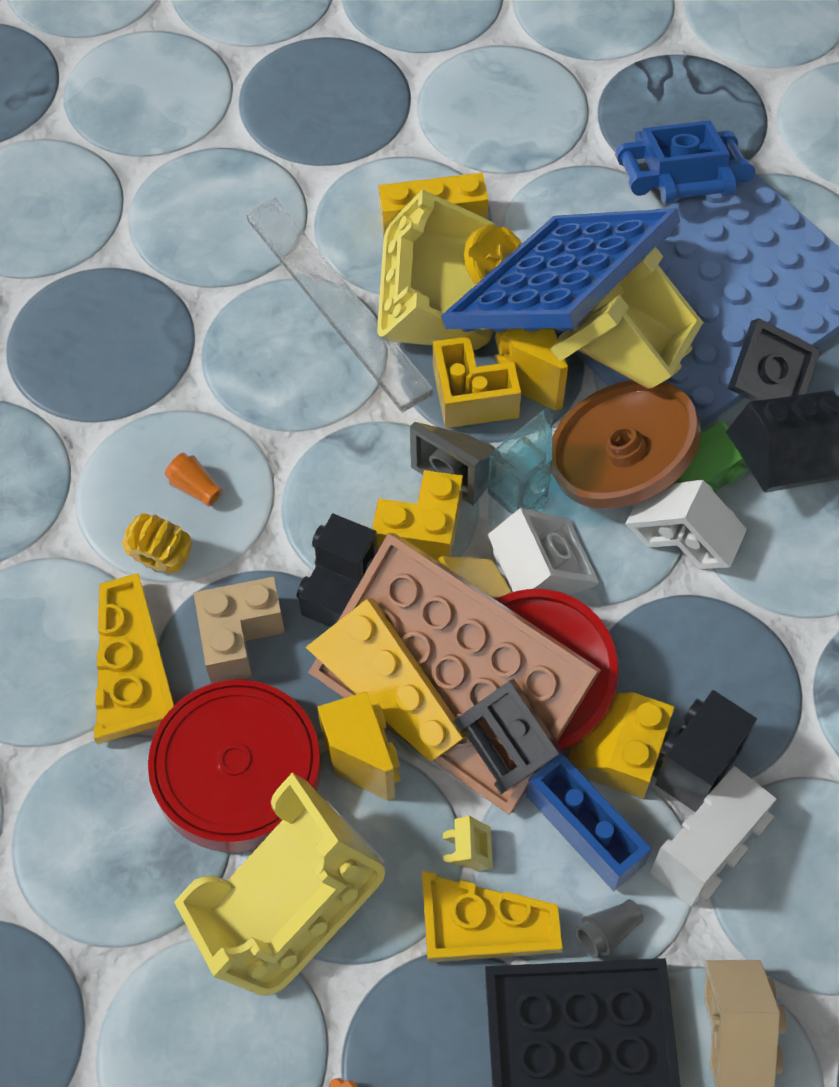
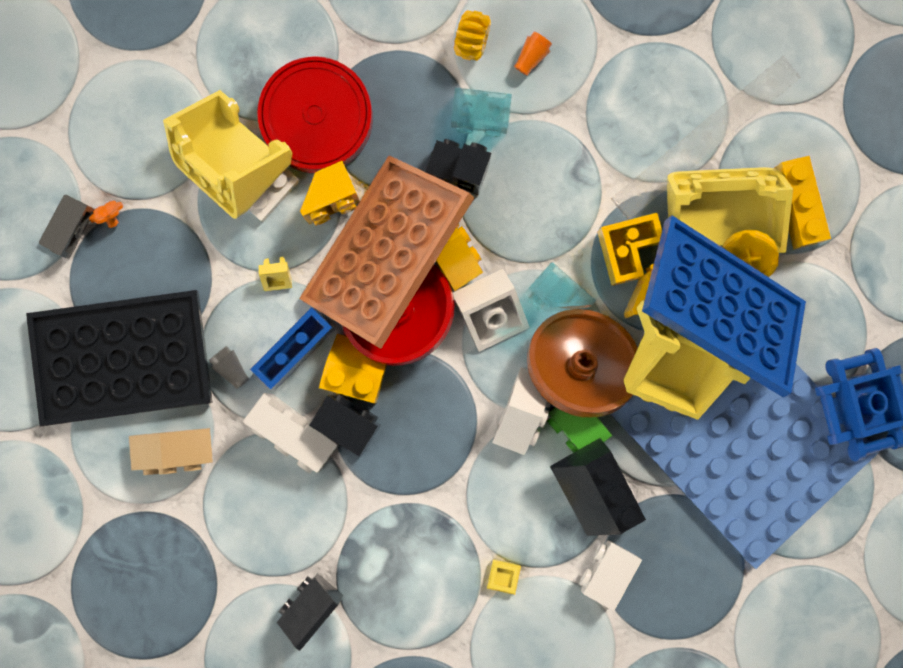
camera: 80 degrees right, 25 degrees up
(131, 673) = (385, 33): yellow wing -> none
(230, 618) = (415, 92): tan brick -> none
(264, 543) = (481, 112): none -> clear light blue brick
(374, 659) = (383, 202): yellow wing -> none
(431, 521) = (507, 228): yellow brick -> none
(451, 453) = (563, 242): dark grey slope -> none
(484, 923) = (226, 287): yellow wing -> none
(518, 730) = (337, 291): black plate -> none
(772, 363) = (665, 475): black plate -> none

